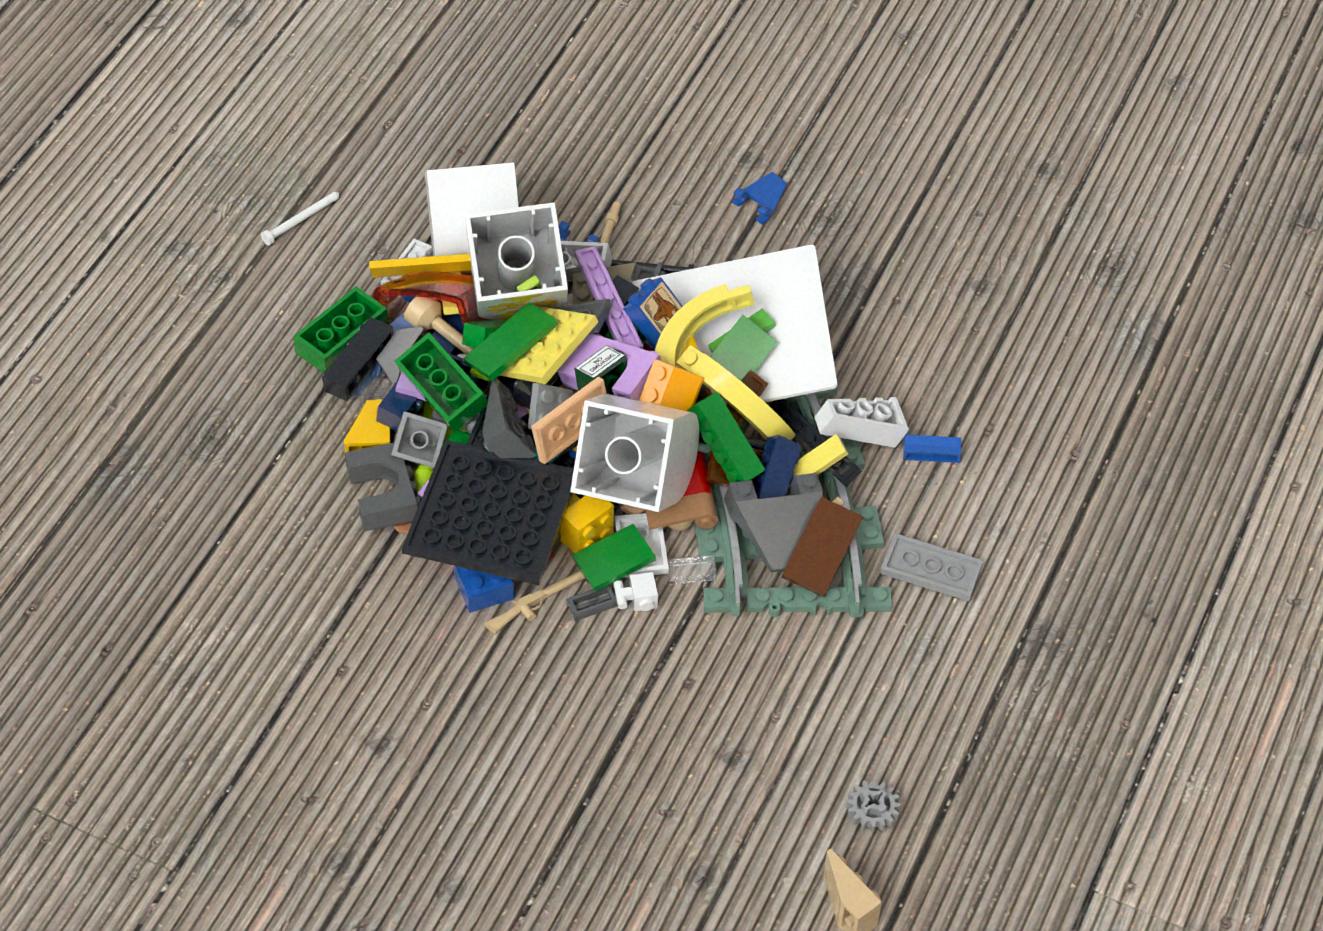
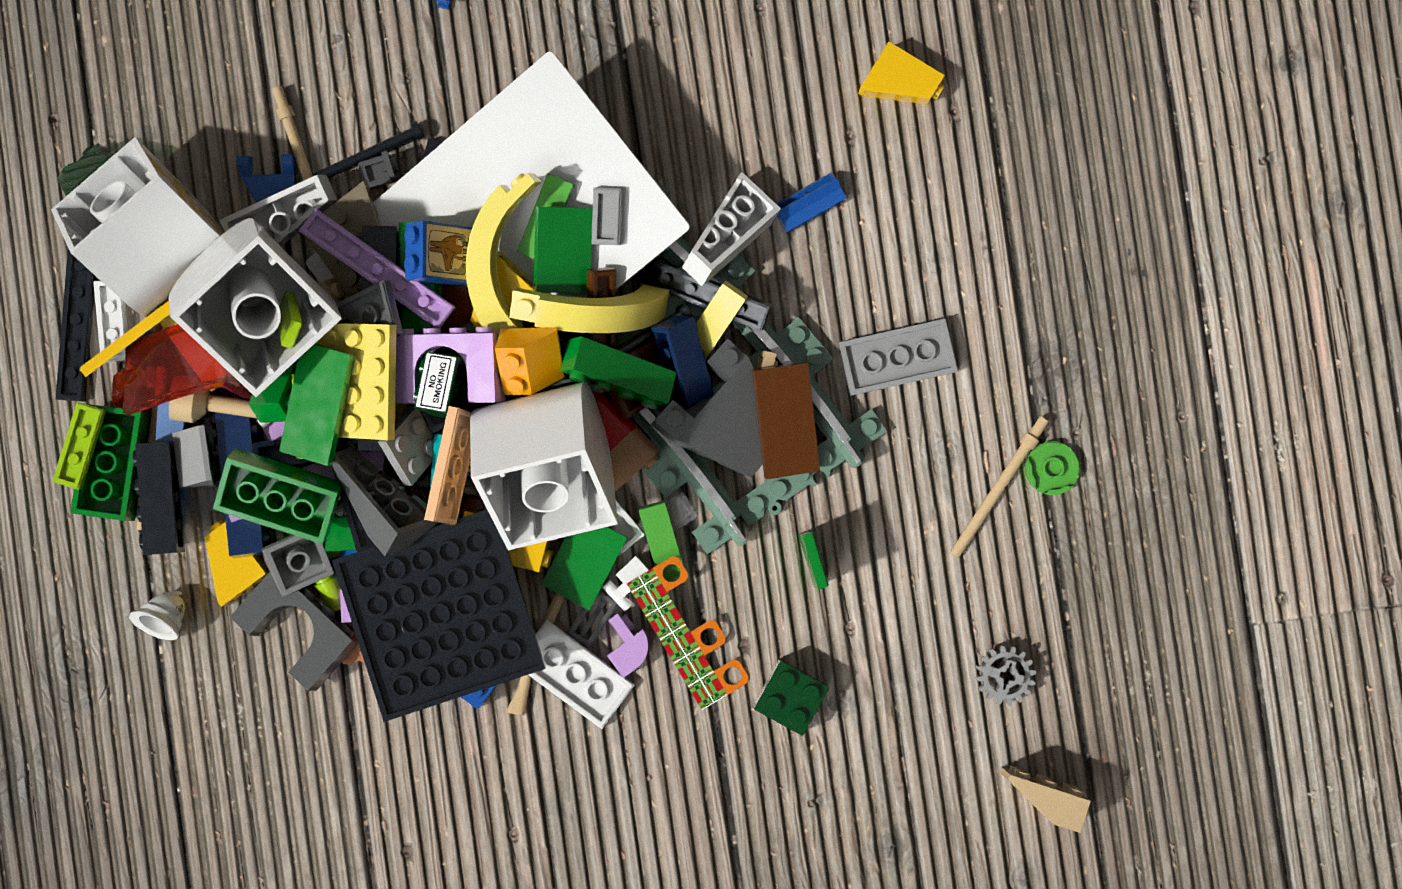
camera: 30 degrees left, 35 degrees up
(296, 430) = (161, 615): none -> white piece
(332, 302) = (79, 446): none -> lime tile
(388, 249) = (75, 331): none -> black tile
(552, 625) = (579, 676): none -> white tile
(606, 632) = (634, 649): none -> lavender brick
(644, 652) = (682, 645): none -> piece
(677, 579) = (660, 537): none -> bright green tile
(699, 725) = (791, 697): none -> dark green brick
(780, 637) = (813, 560): none -> green tile
(784, 352) = (607, 216): none -> light grey tile
(994, 672) = (1028, 442): none -> tan bar
(1001, 699) = (1052, 468): none -> bright green tile
(1047, 410) = (902, 78): none -> yellow slope

